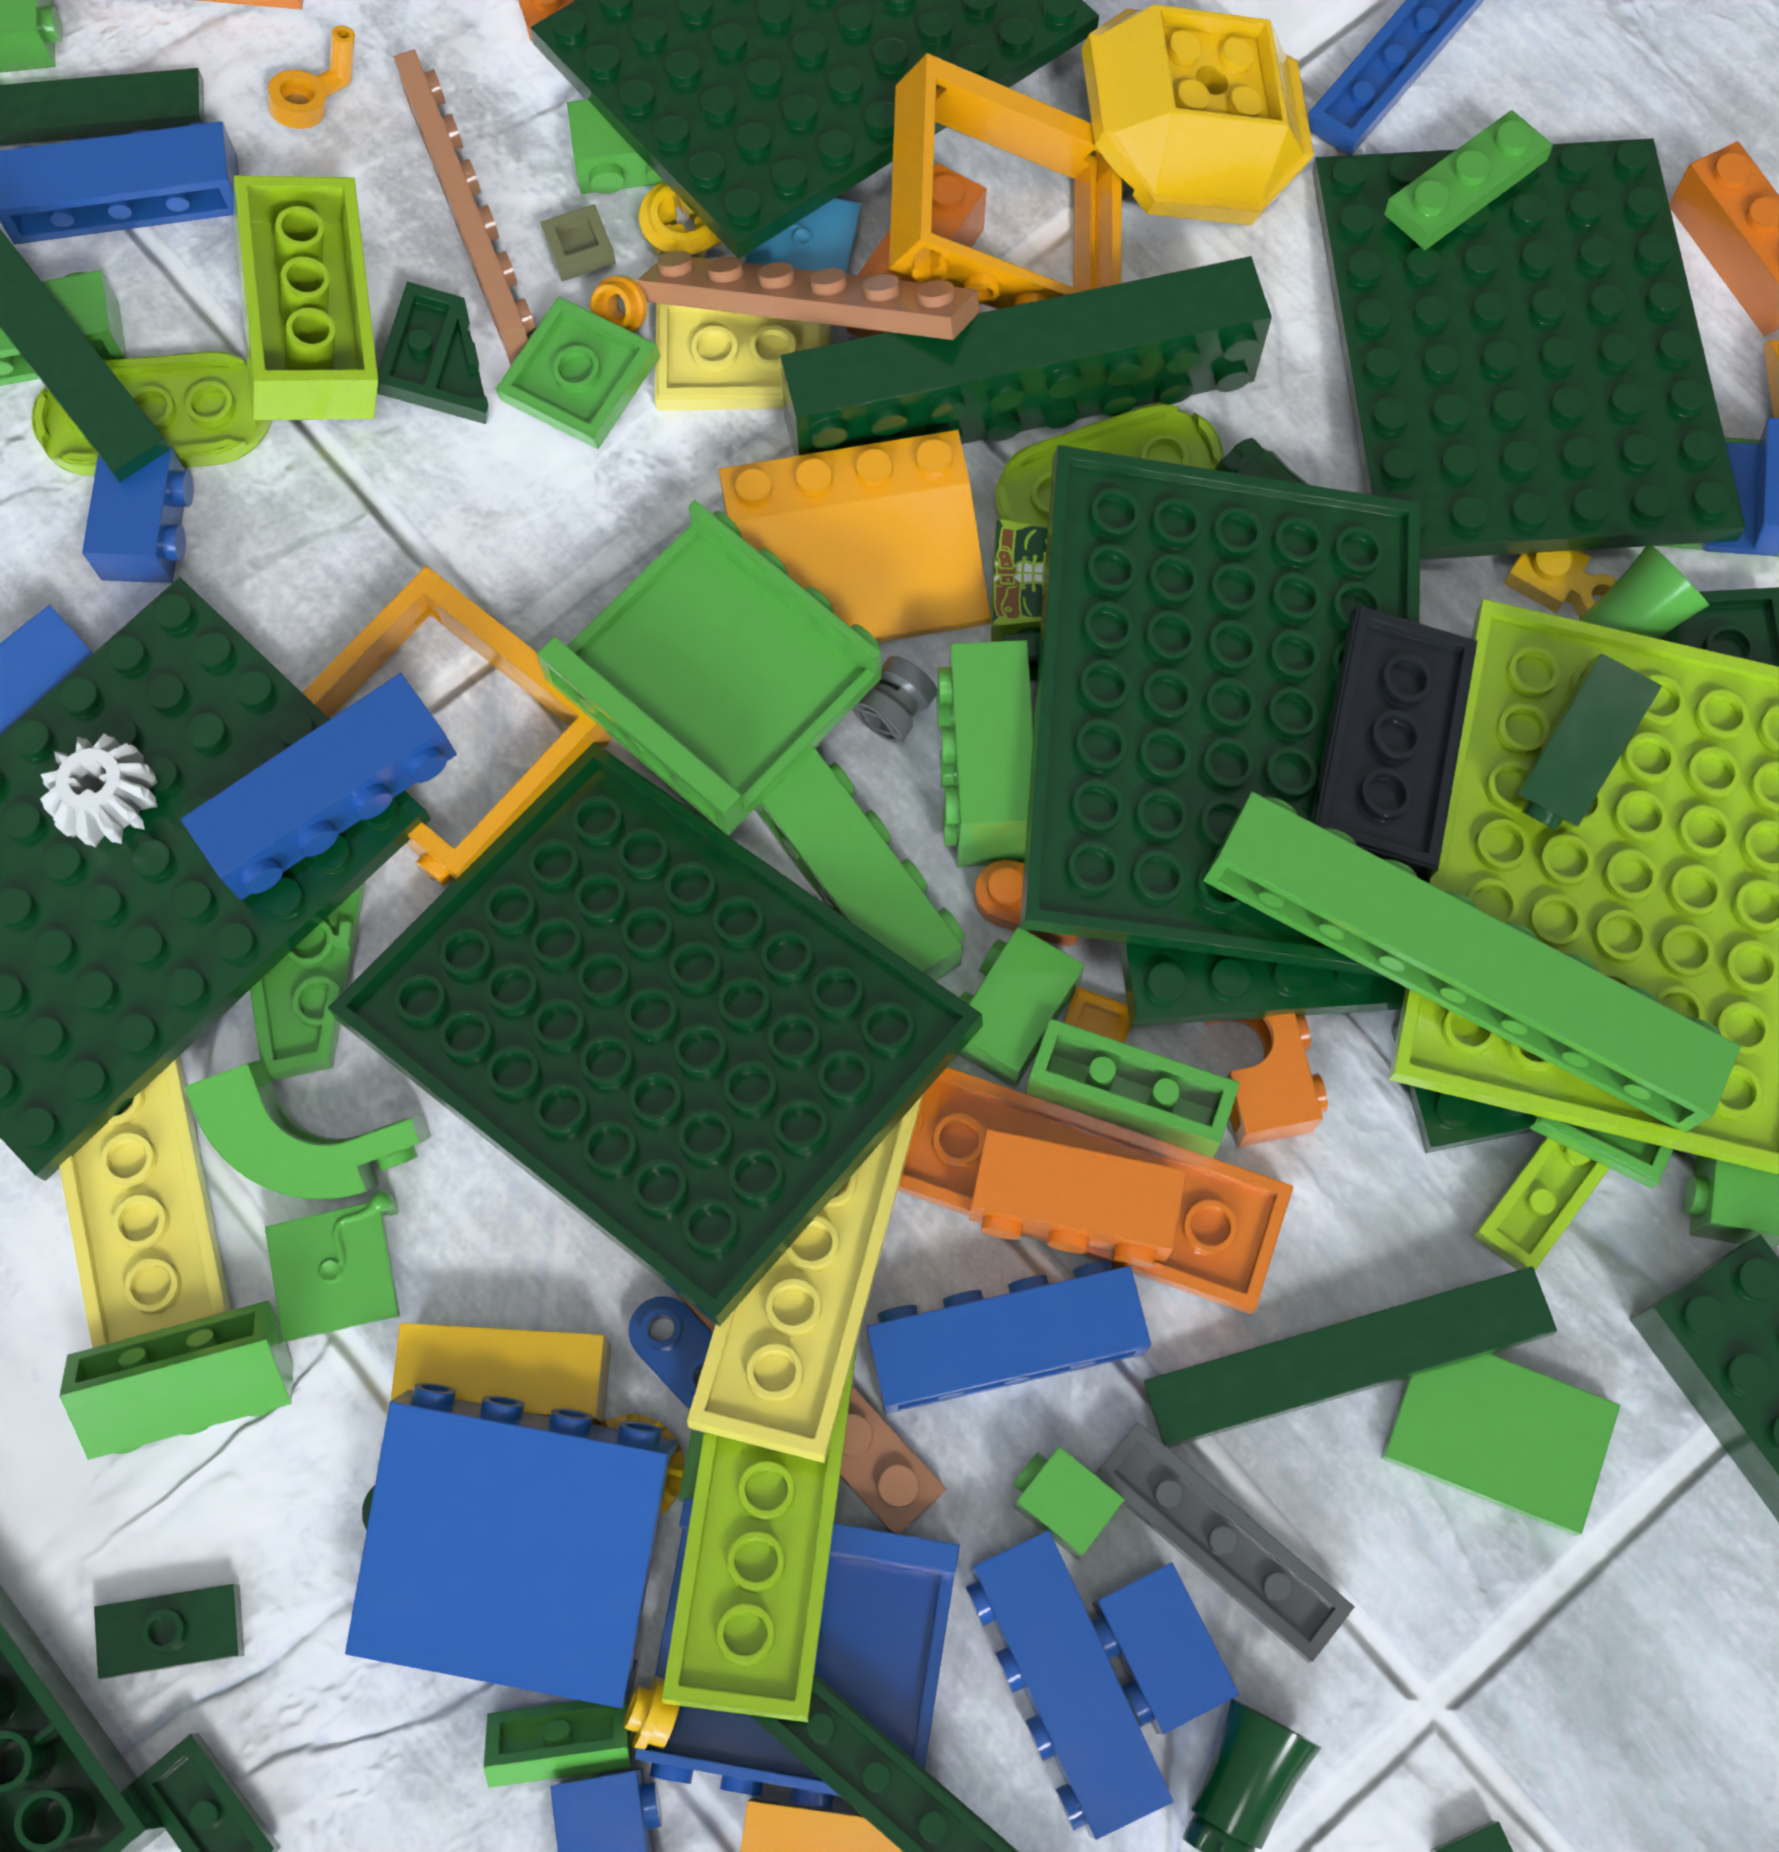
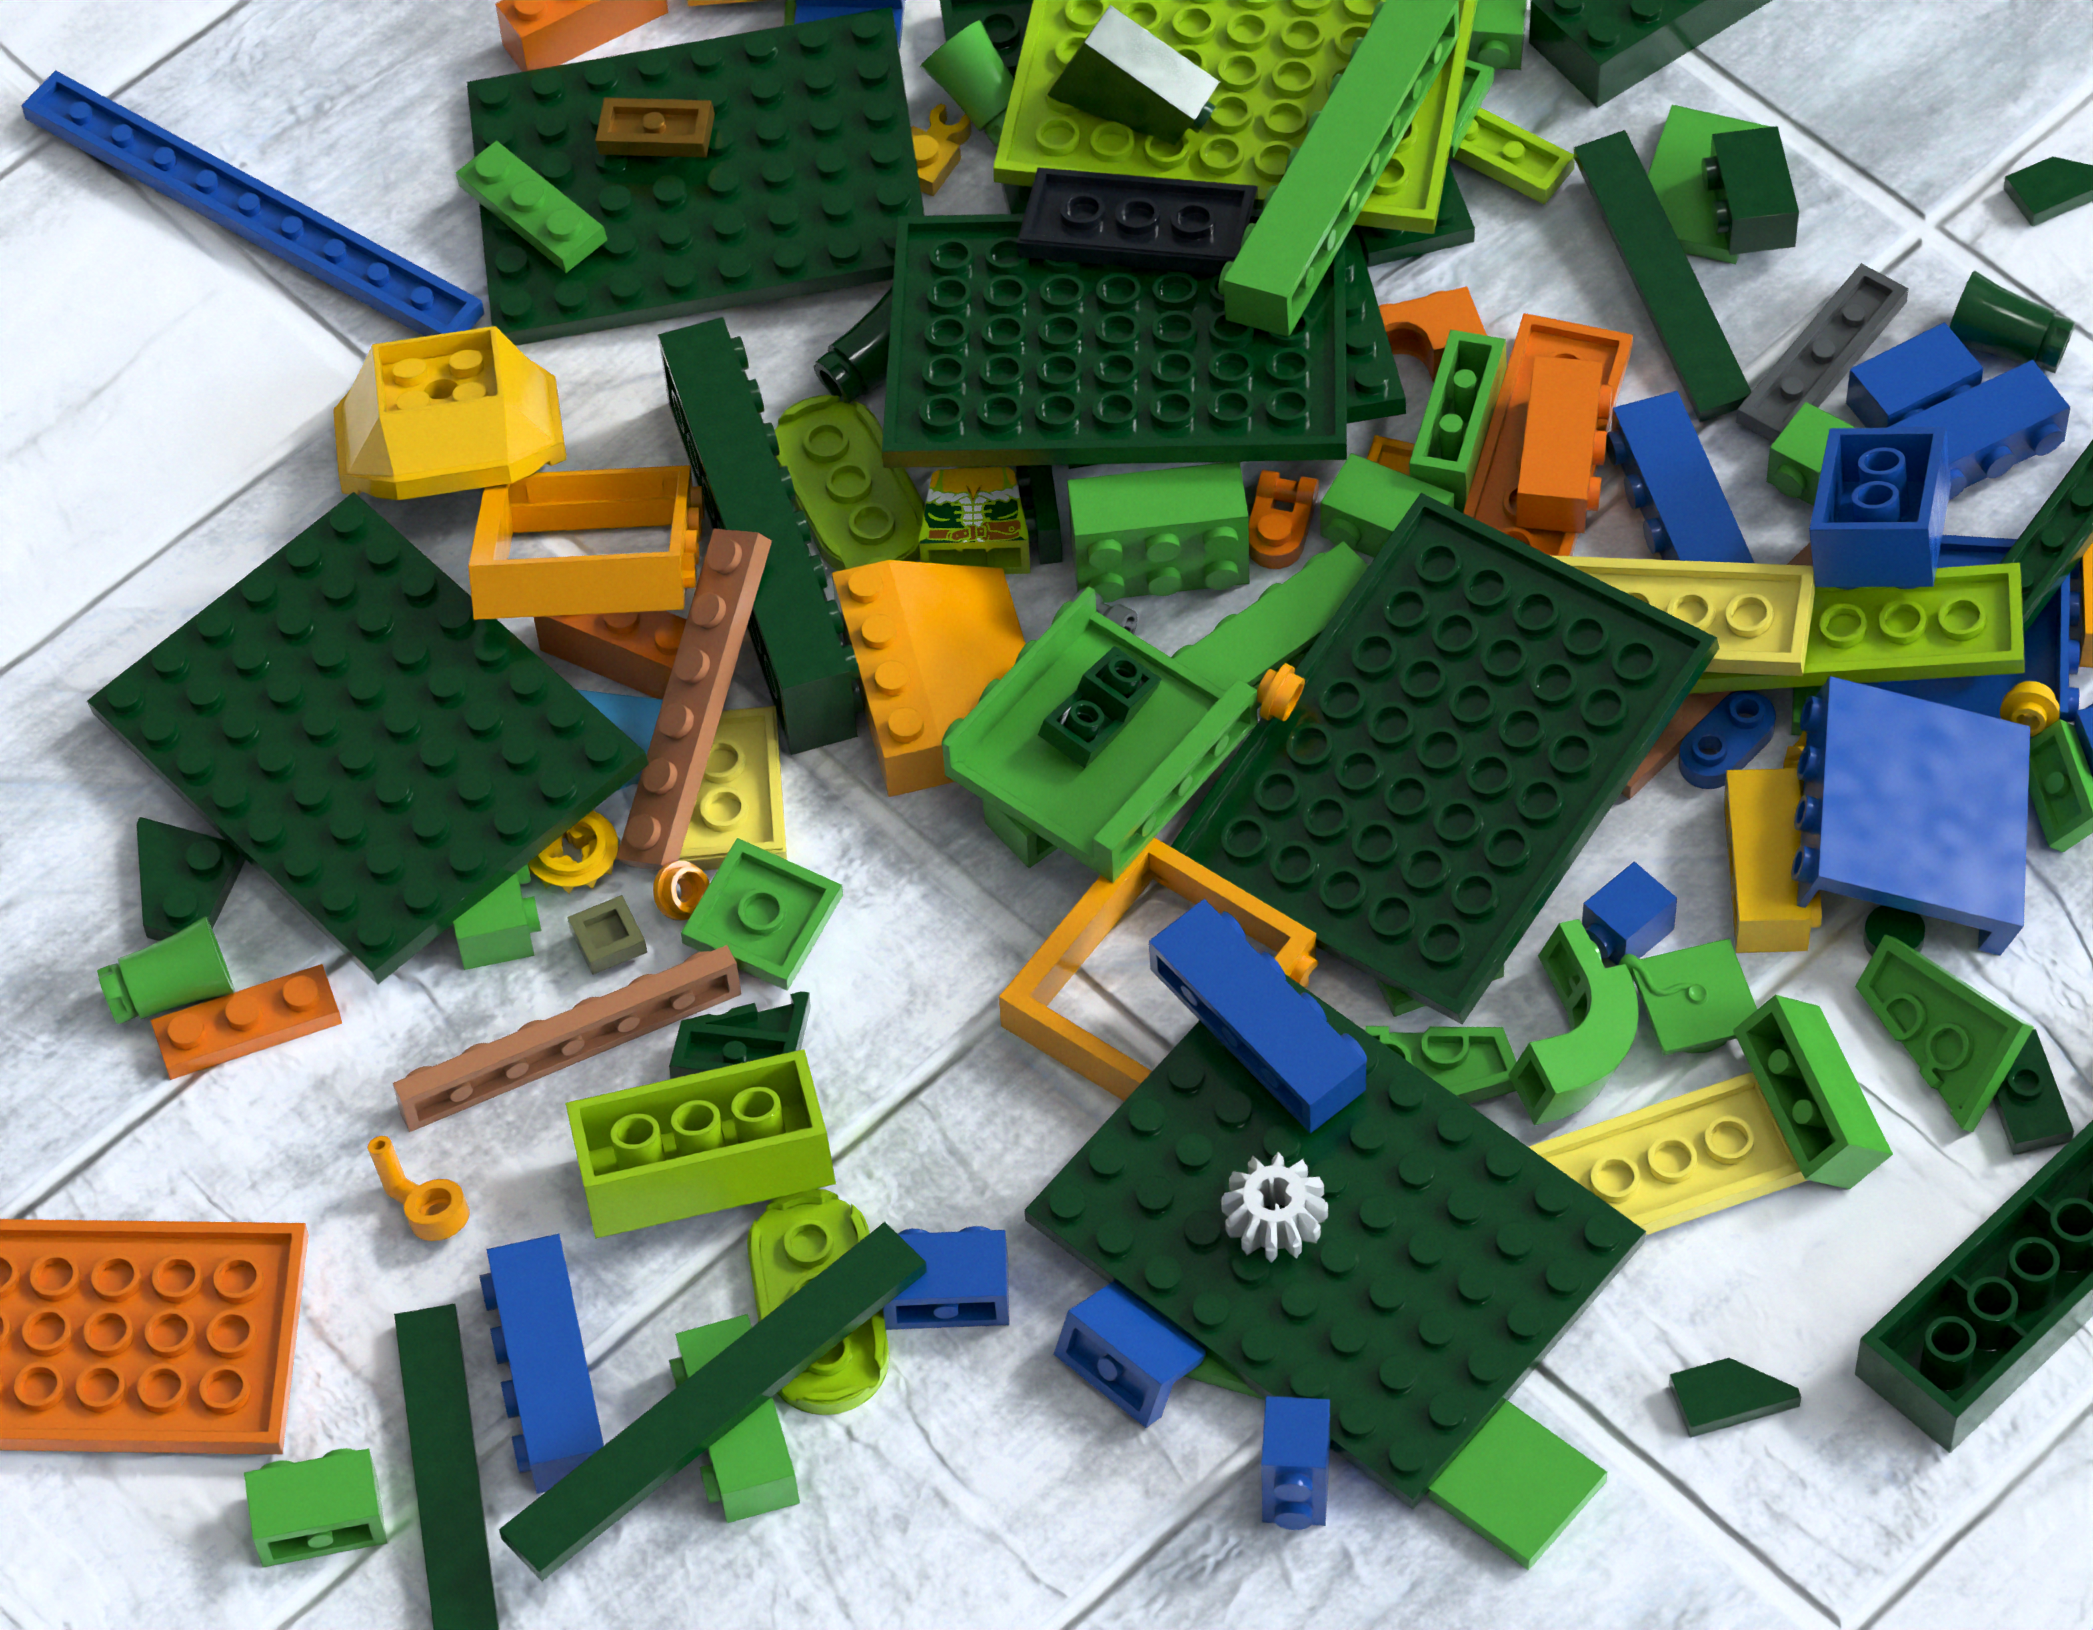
camera: 90 degrees left, 15 degrees down
(241, 1554) = (1945, 1025): none -> bright green wing
(448, 1210) = (1629, 914): none -> blue brick
(737, 846) = (1279, 692): none -> light orange plate
(742, 666) = (1100, 707): none -> dark green slope
(901, 1550) = (1880, 507): none -> blue brick
(1462, 1477) = (1751, 190): none -> dark green brick
(1562, 283) = (655, 127): none -> pearl gold plate

